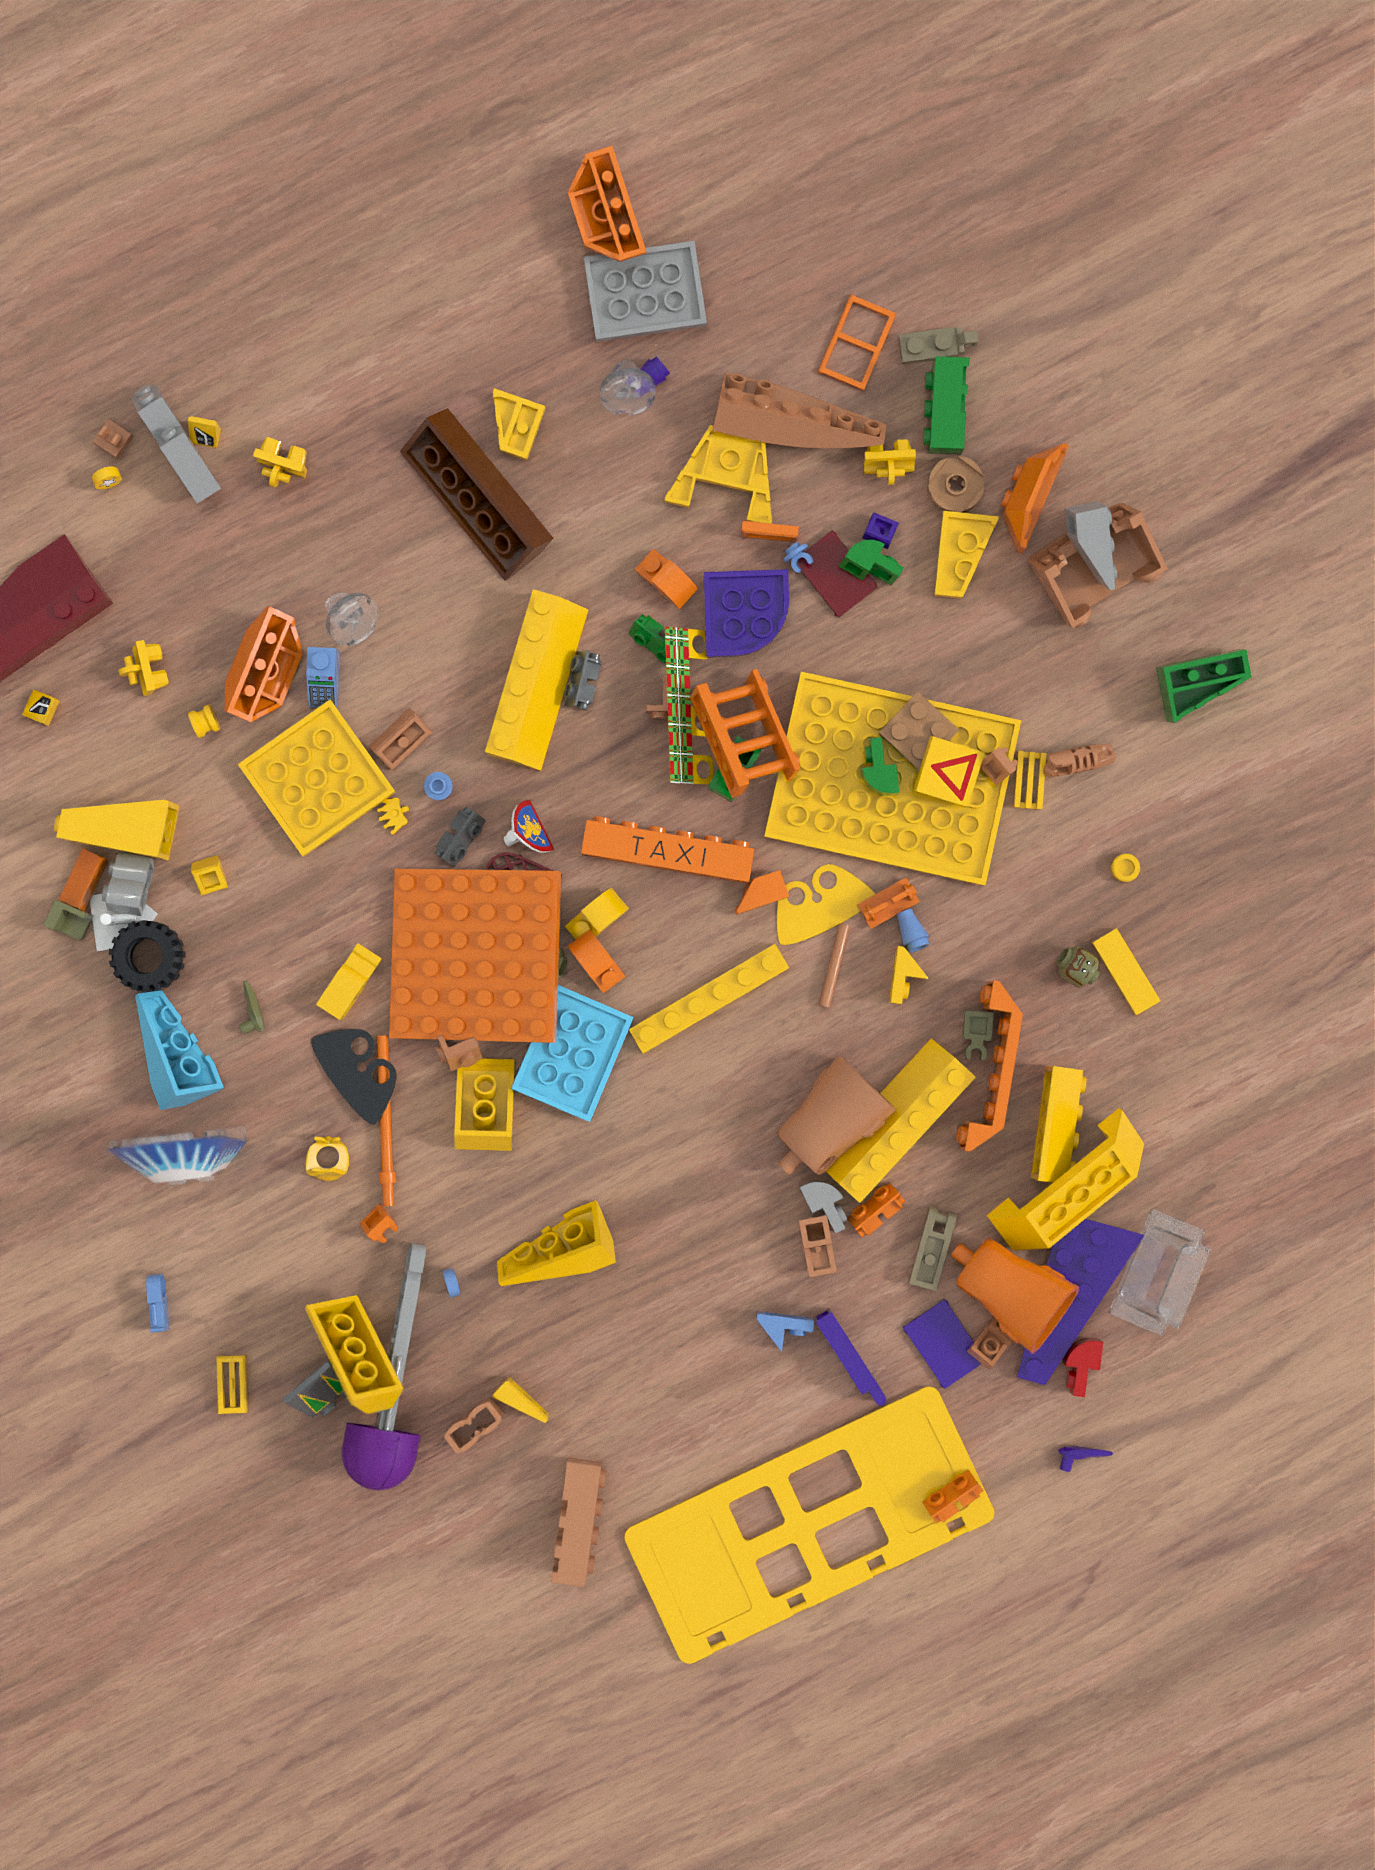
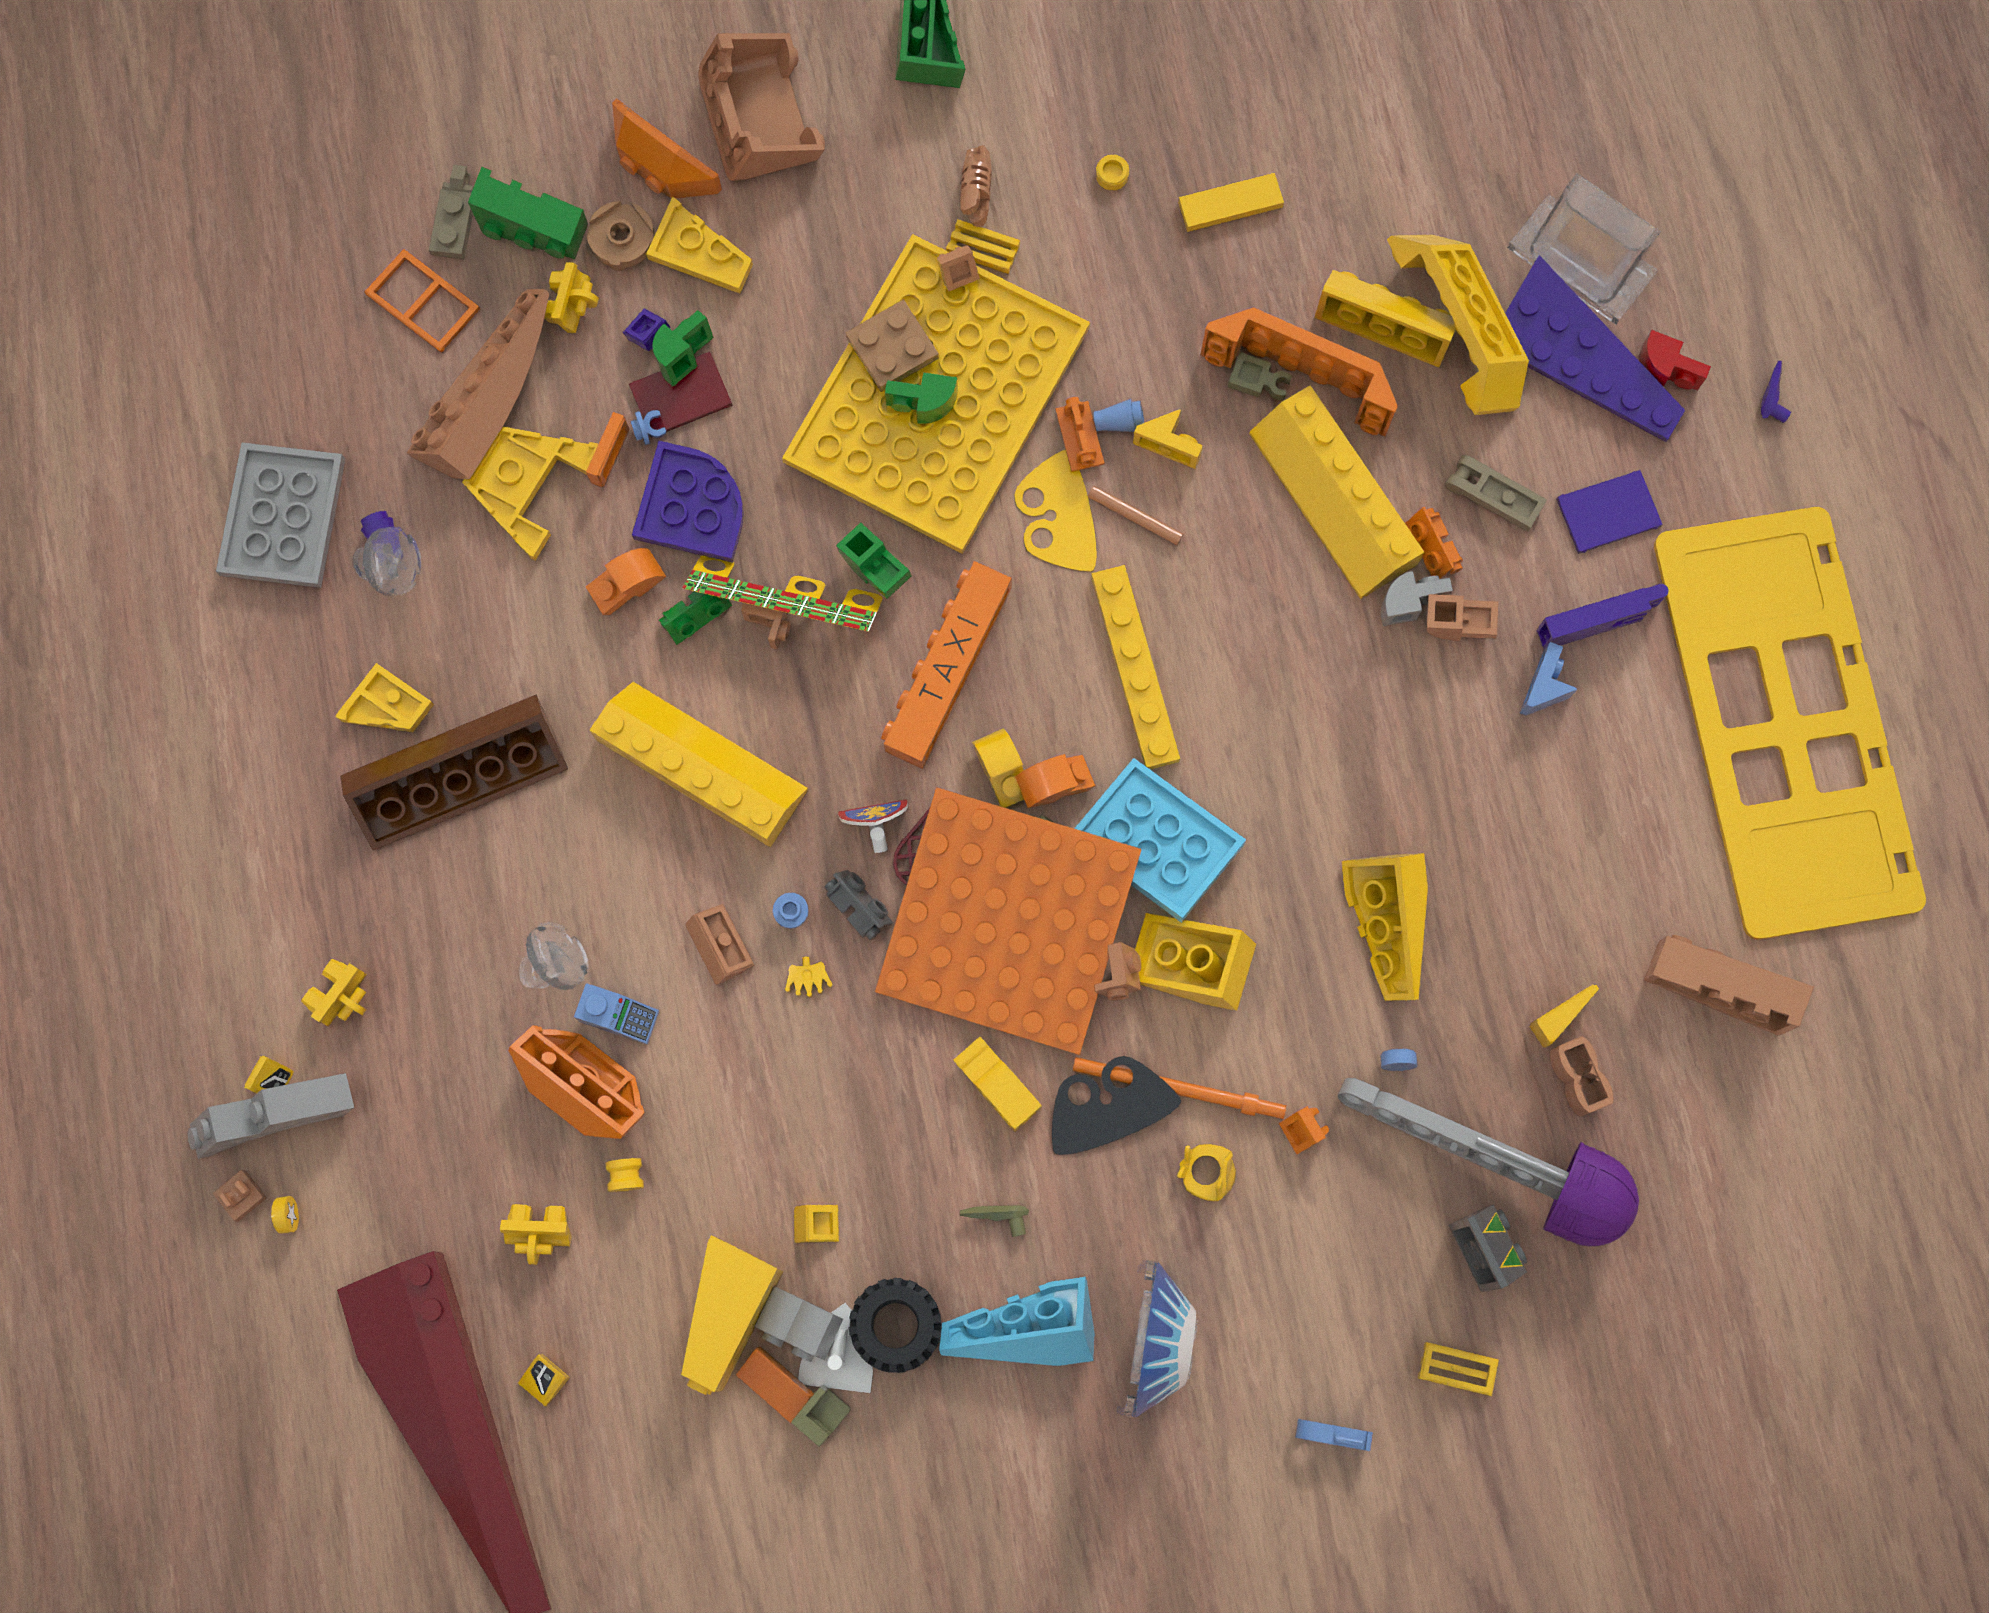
camera: 70 degrees left, 10 degrees down
(316, 778) = (736, 1056): yellow plate -> none
(356, 1353) = (1462, 1186): yellow slope -> none
(583, 668) = (701, 704): dark grey hinge -> none
(605, 208) = (167, 527): orange wedge -> none
(726, 751) = (837, 560): orange fence -> none
(762, 891) = (1026, 571): orange slope -> none
(832, 1118) = (1313, 553): nougat torso -> none
(941, 1502) = (1787, 538): orange hinge -> none
(949, 771) = (948, 321): yellow tile -> none
(989, 1344) = (1613, 450): nougat slope -> none
(1016, 1292) = (1571, 408): orange torso -> none
(1078, 966) = (1211, 248): olive head -> none
(1090, 535) = (731, 97): light grey slope -> none

